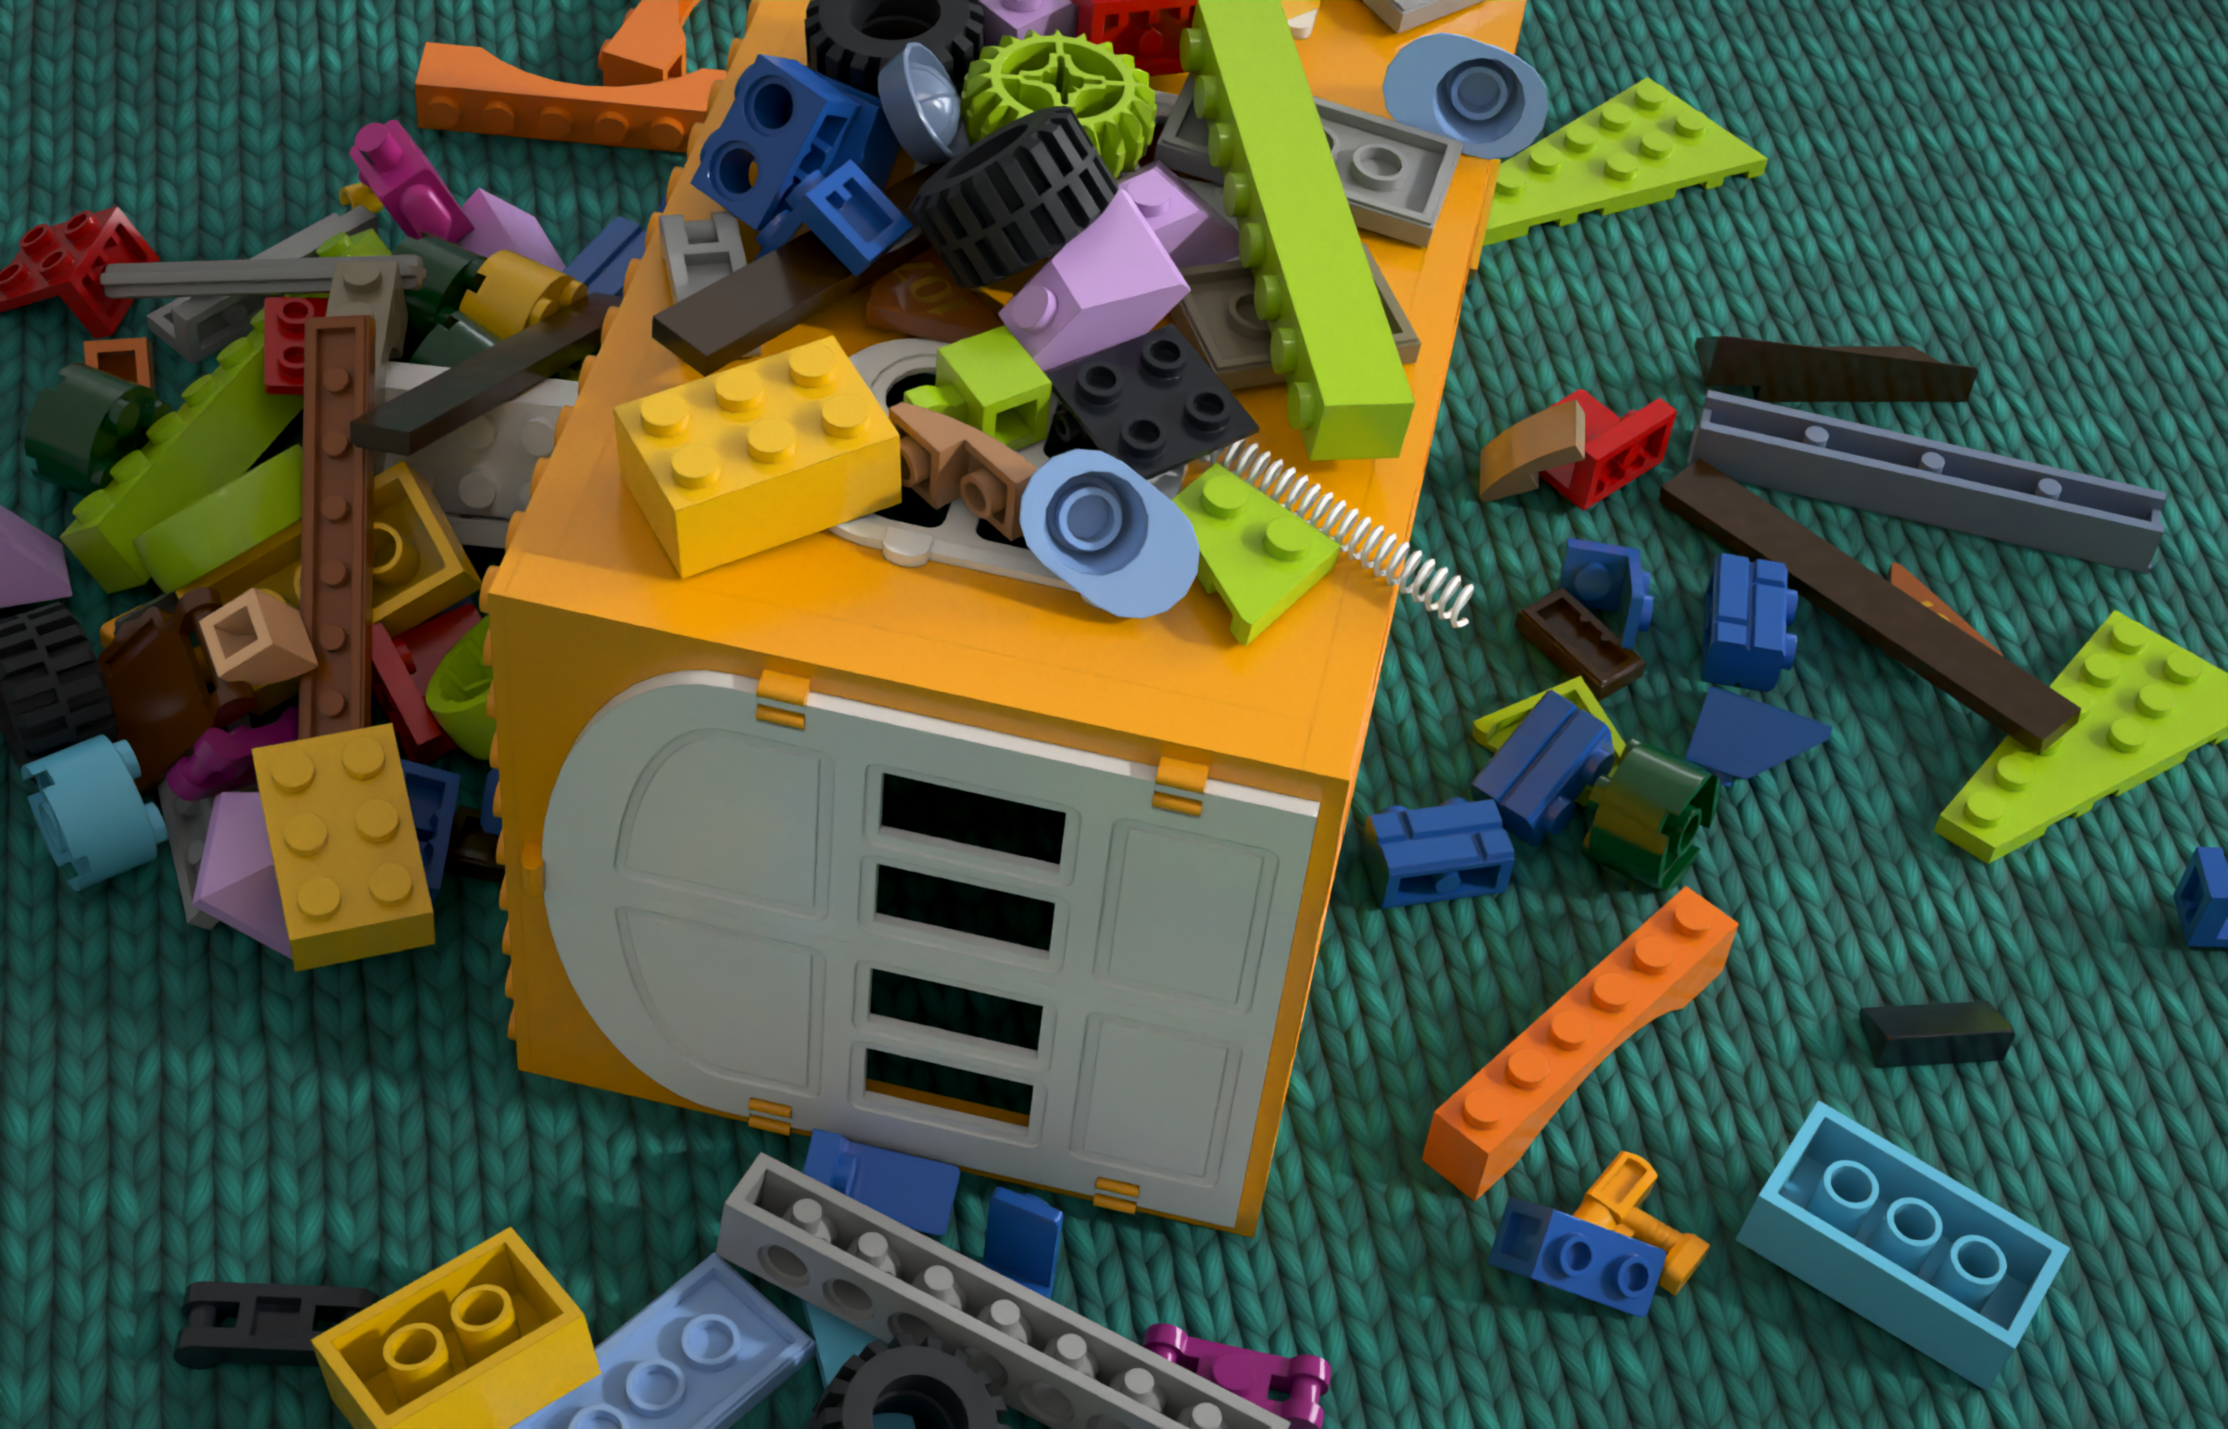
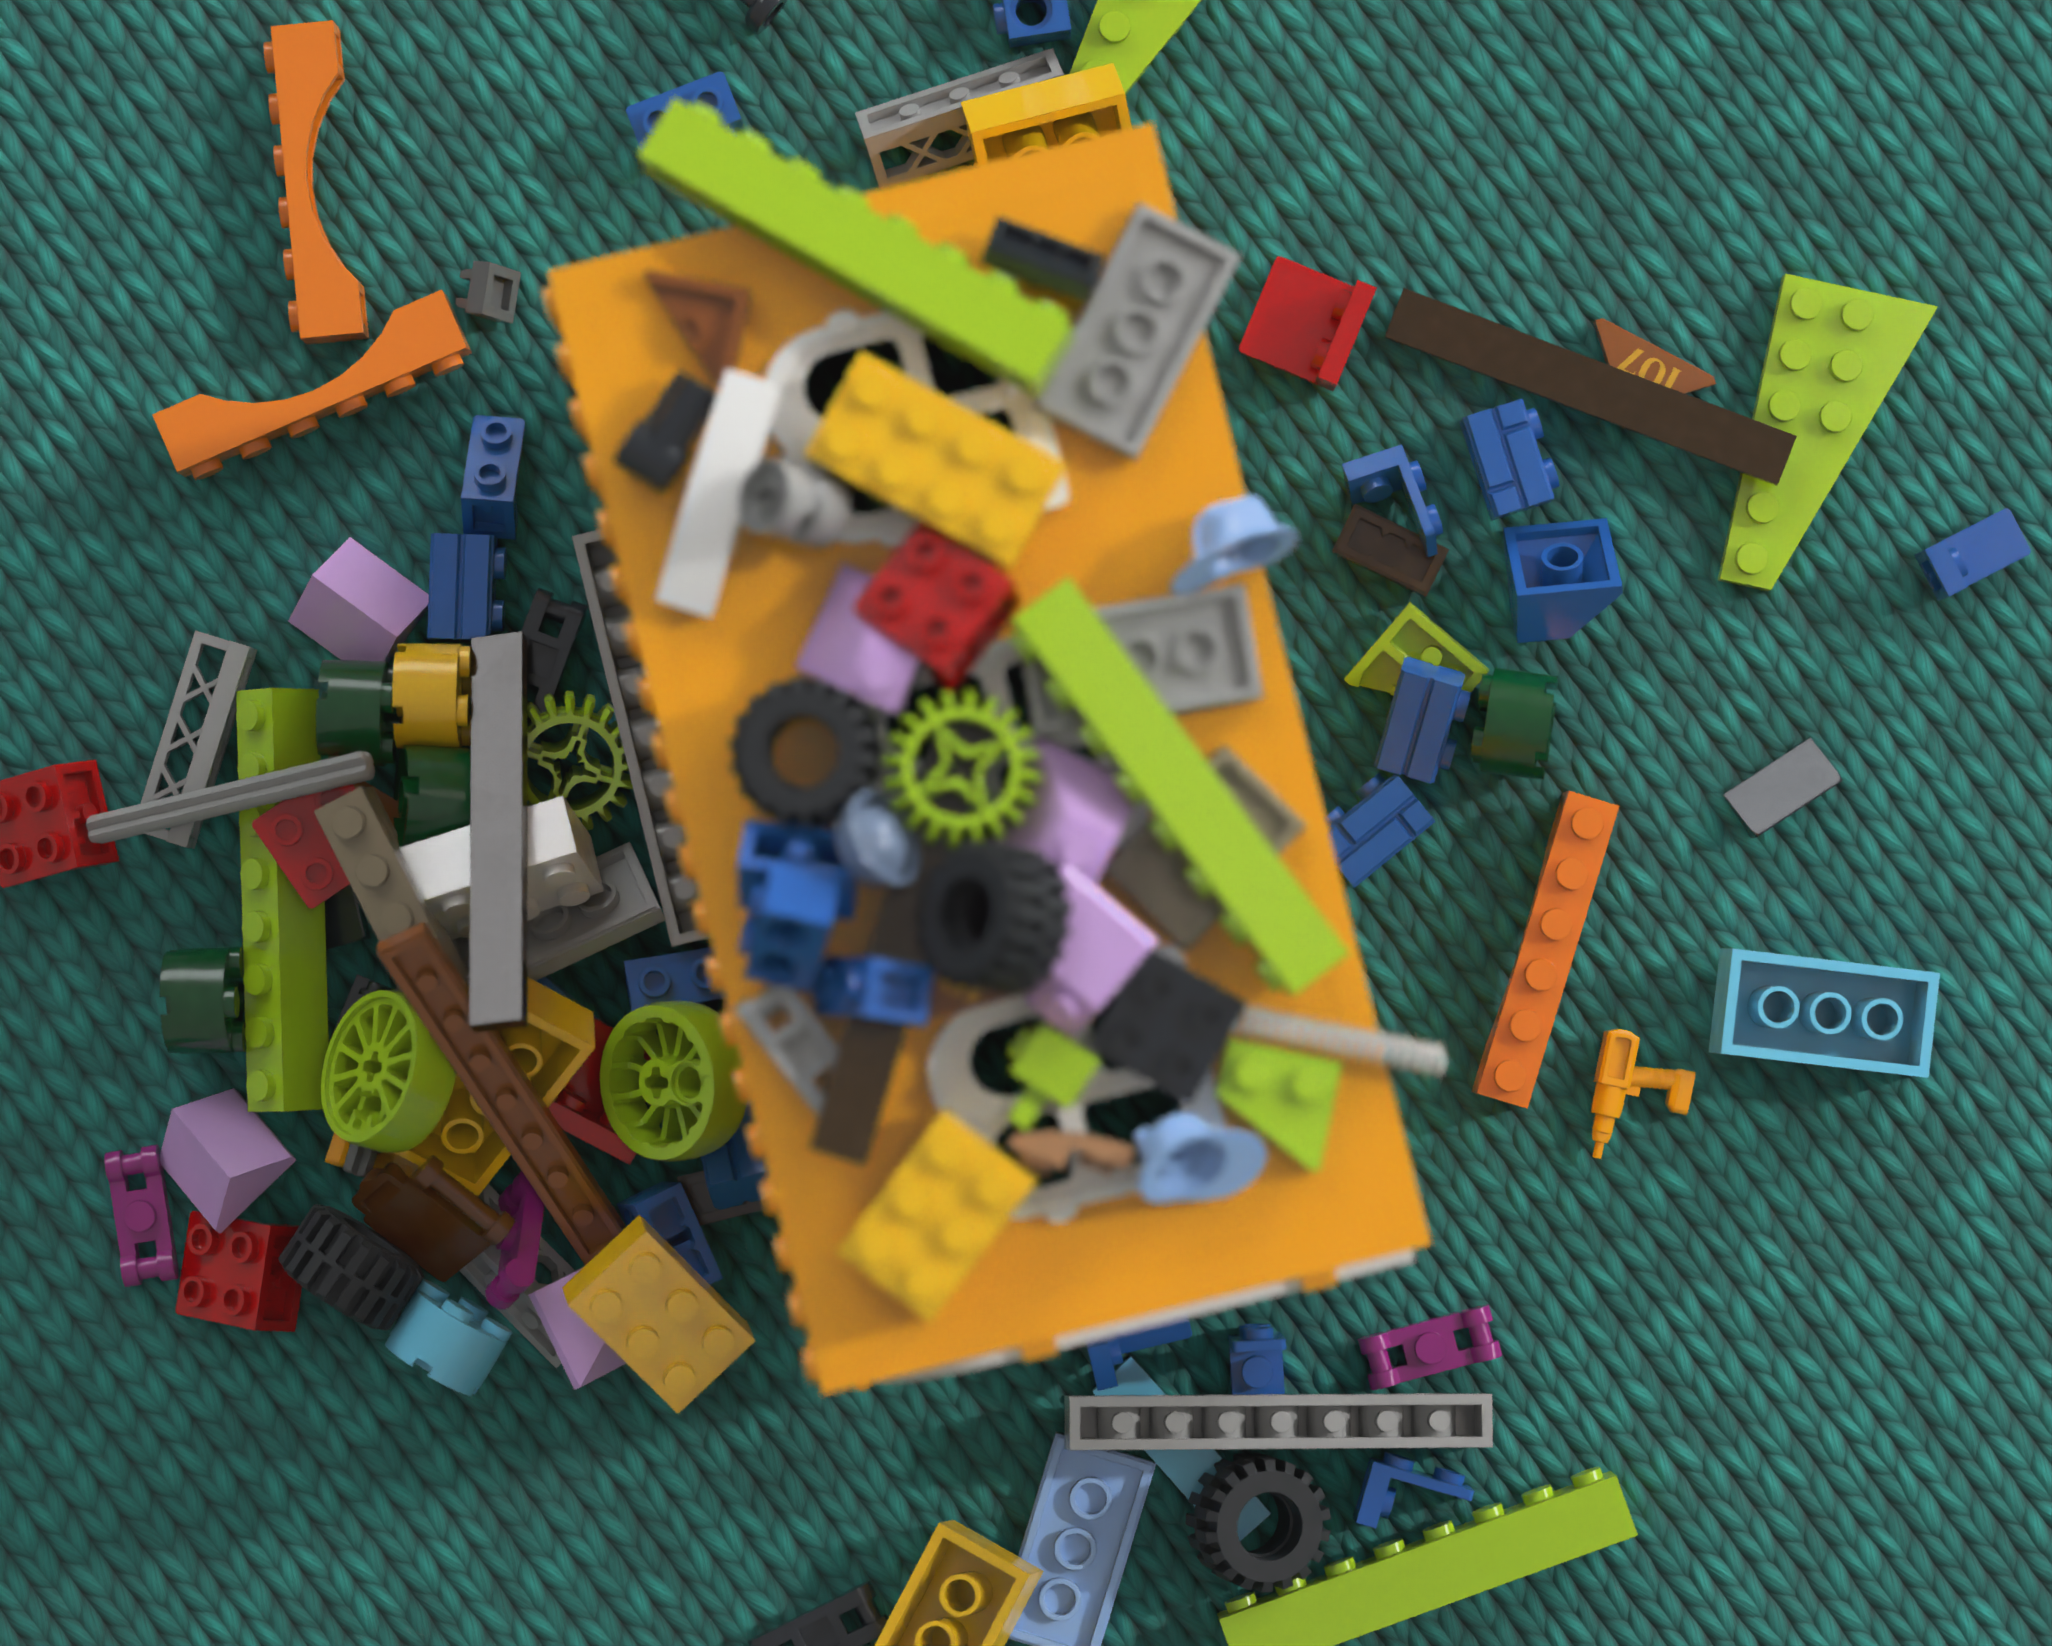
camera: 25 degrees left, 40 degrees up
(123, 357) = (157, 903): orange brick -> none
(258, 640) = (493, 1185): light nougat brick -> none
(405, 182) = (263, 617): dark pink torso -> none
(1538, 443) = (1277, 381): dark tan slope -> none
(1577, 1256) = (1604, 1154): blue bracket -> none
(1831, 372) = (1464, 110): dark brown wedge -> none
(1929, 481) = (1590, 211): sand blue tile -> none

